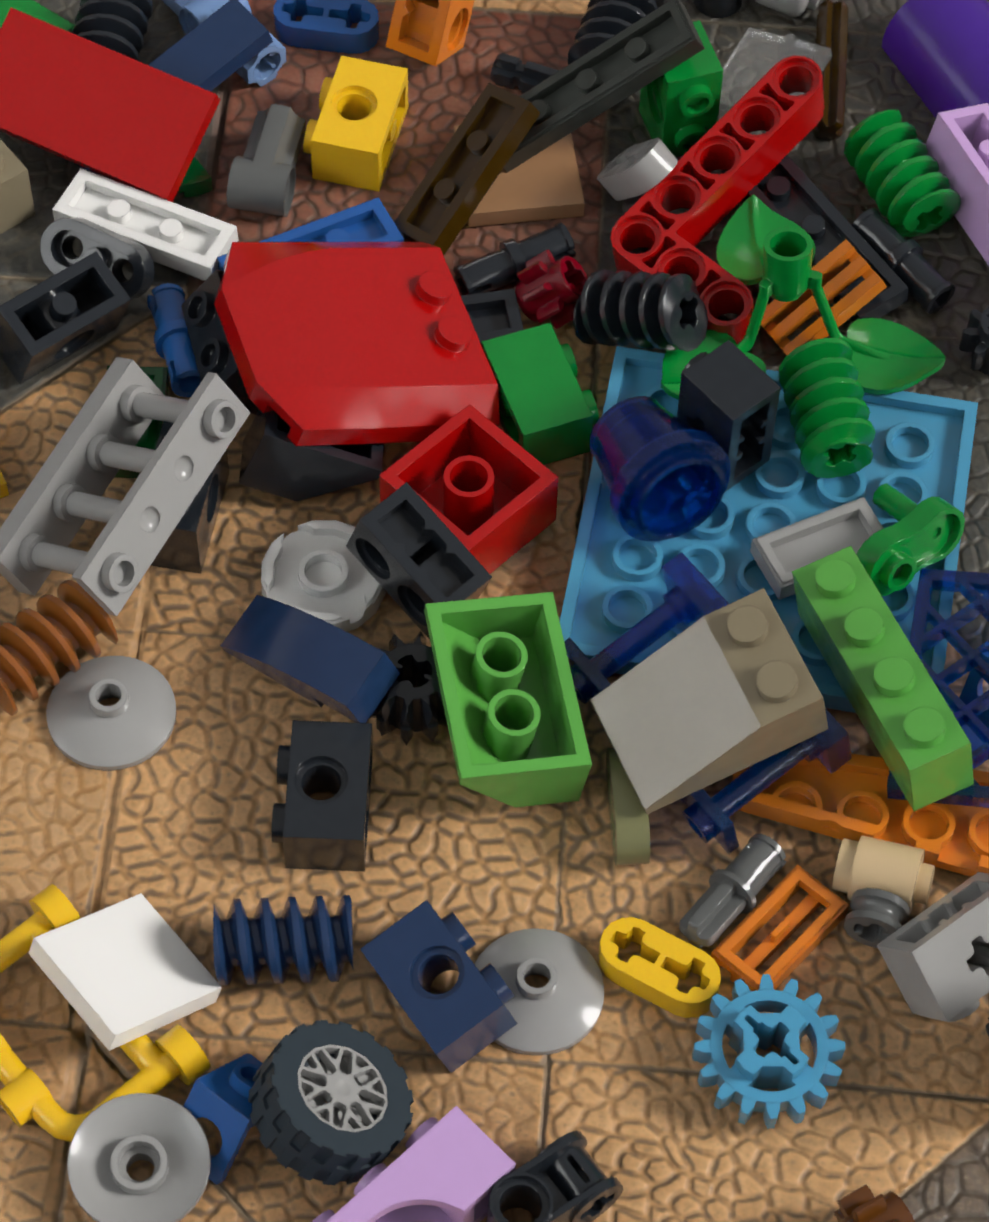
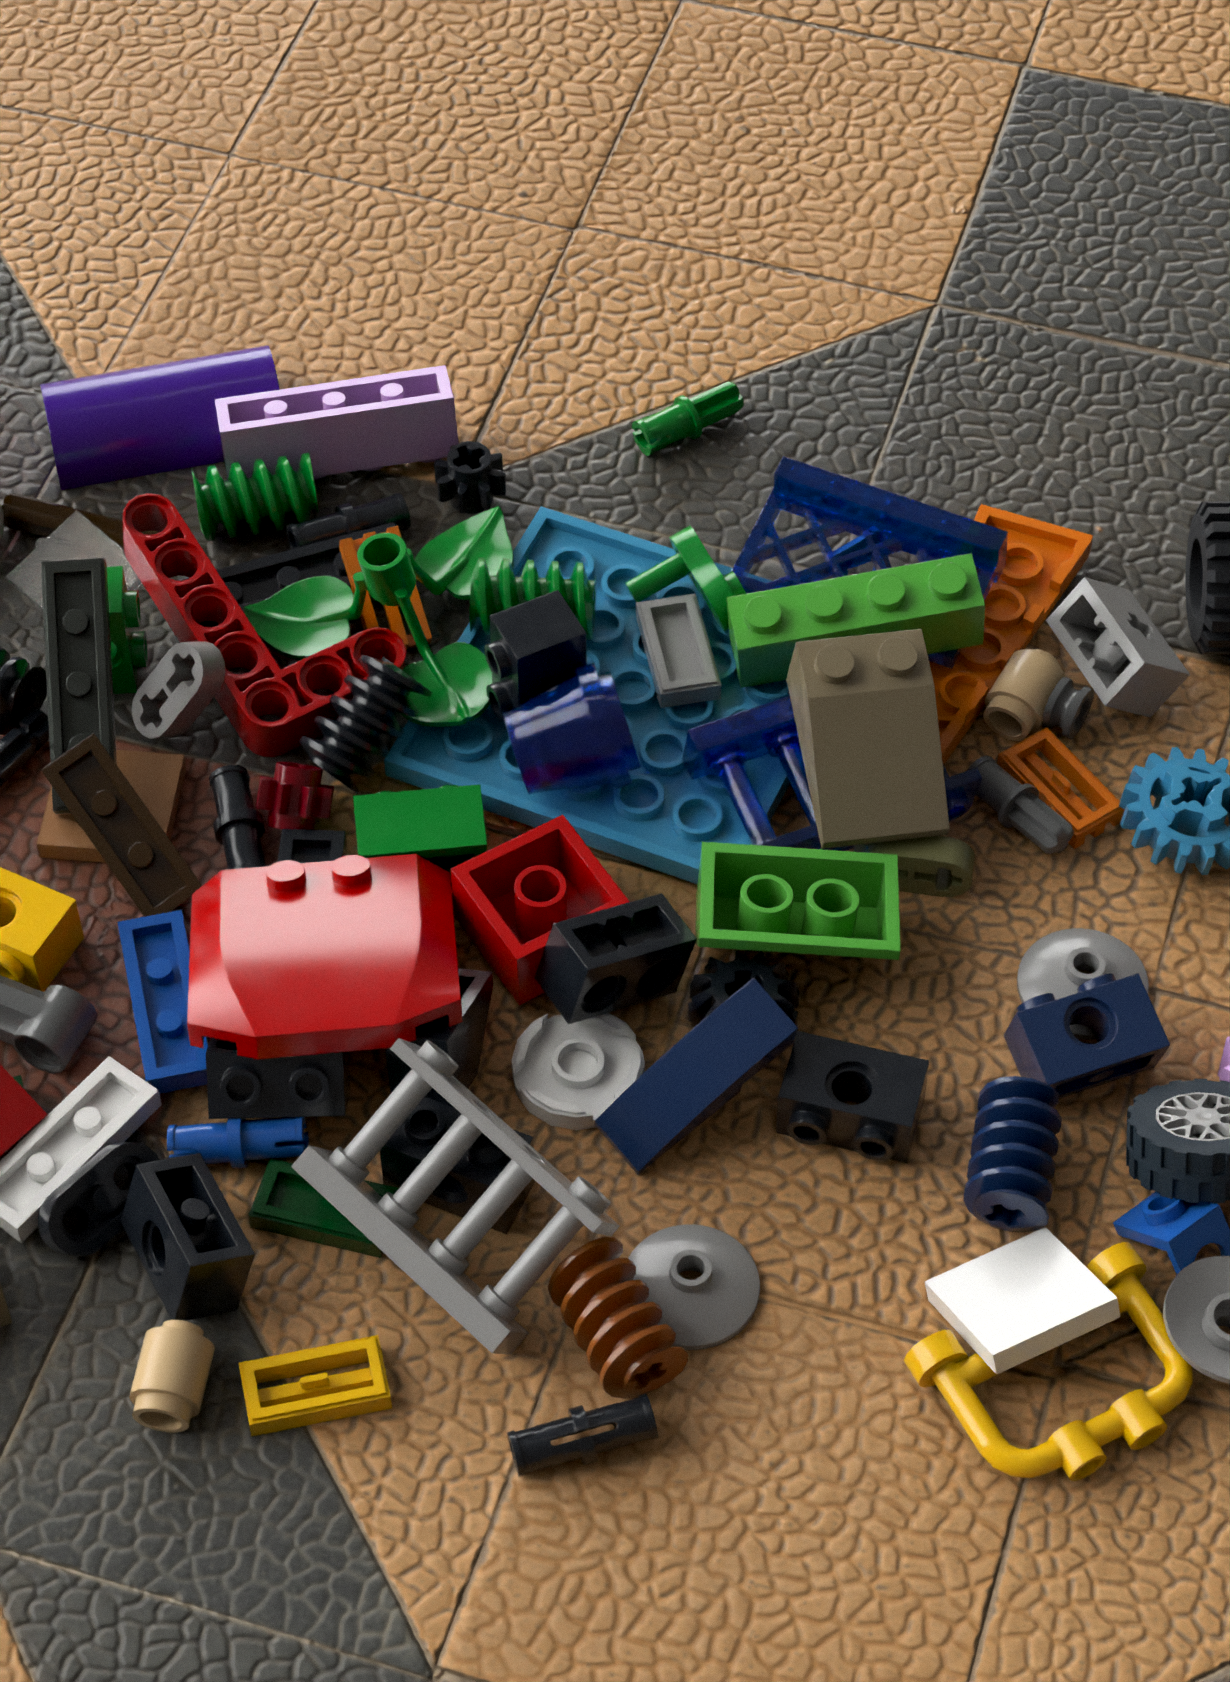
camera: 75 degrees left, 5 degrees down
(659, 967) = (1072, 871): yellow beam -> none

